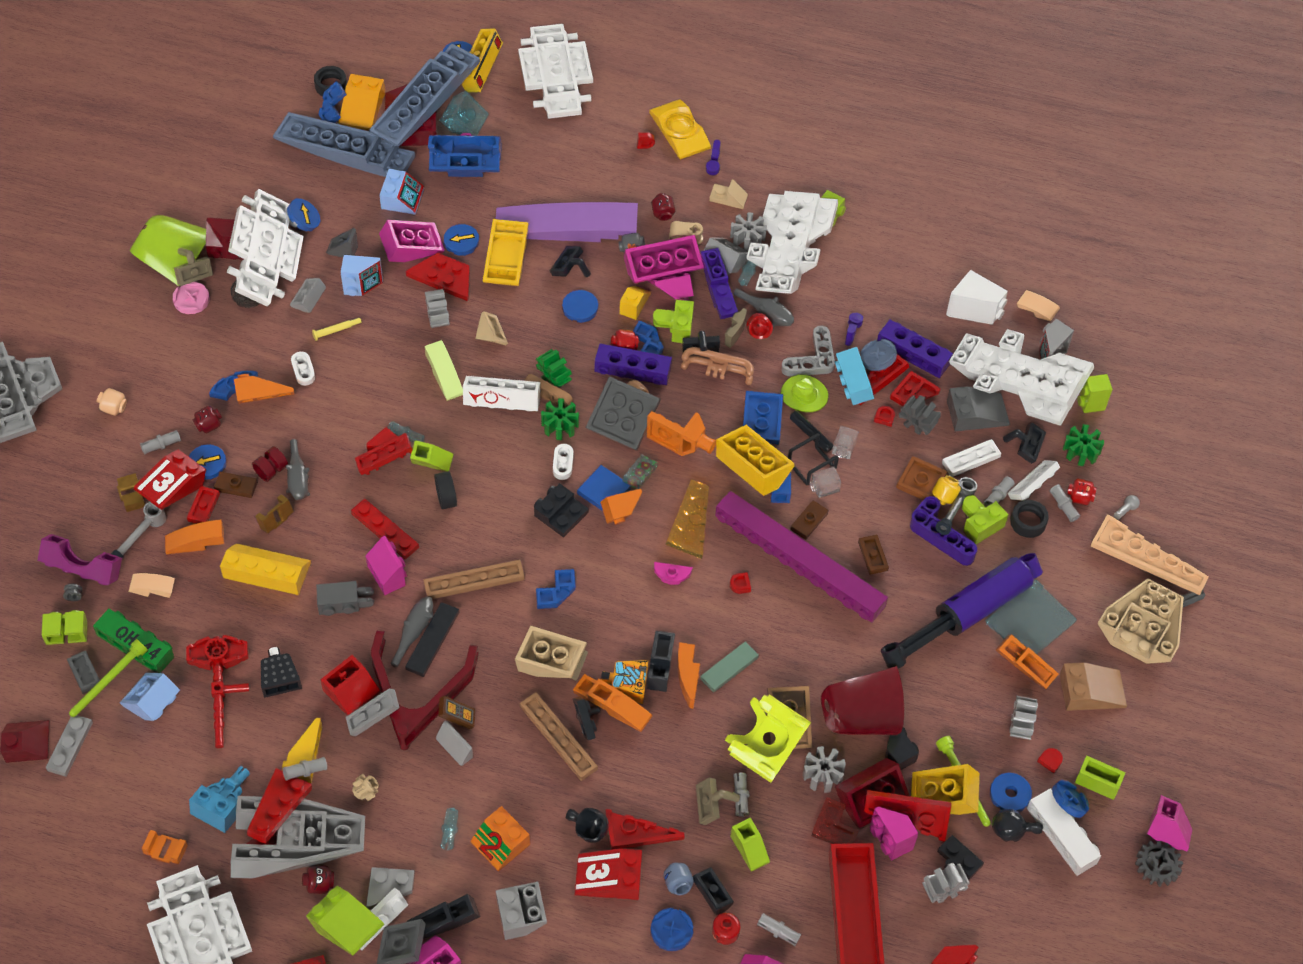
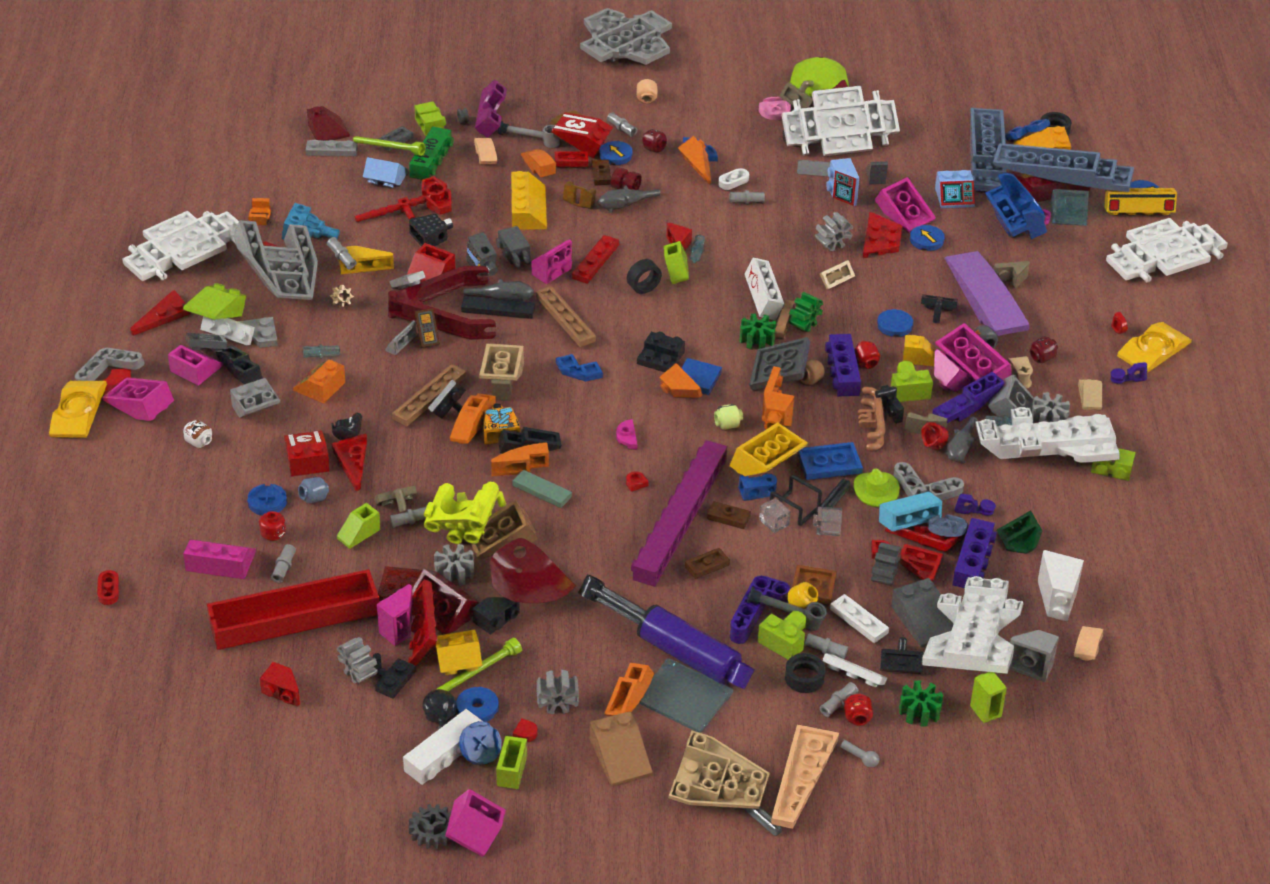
camera: 75 degrees right, 15 degrees down
(277, 805) = (303, 244): red wing -> none
(303, 214) = (892, 140): blue tile -> none
(318, 879) = (253, 289): dark red head -> none
(335, 328) = (773, 179): light yellow piece -> none
(338, 366) = (746, 197): none -> light grey pin
(352, 631) = (481, 253): none -> dark grey torso
(383, 454) = (658, 232): red plate -> none
(443, 370) = (778, 249): yellowish green slope -> none
(505, 252) = (925, 262): yellow slope -> none
(547, 190) = (1012, 271): none -> dark tan slope
(563, 463) = (713, 343): white plate -> none
(640, 471) = (726, 392): clear light blue tile -> none
(648, 335) = (879, 377): blue tile -> none
(678, 479) = (728, 416): none -> yellowish green head
(689, 526) = (685, 434): clear yellow wing -> none
(713, 891) = (307, 513): black brick -> none
(898, 305) = (1021, 534): none -> dark green slope

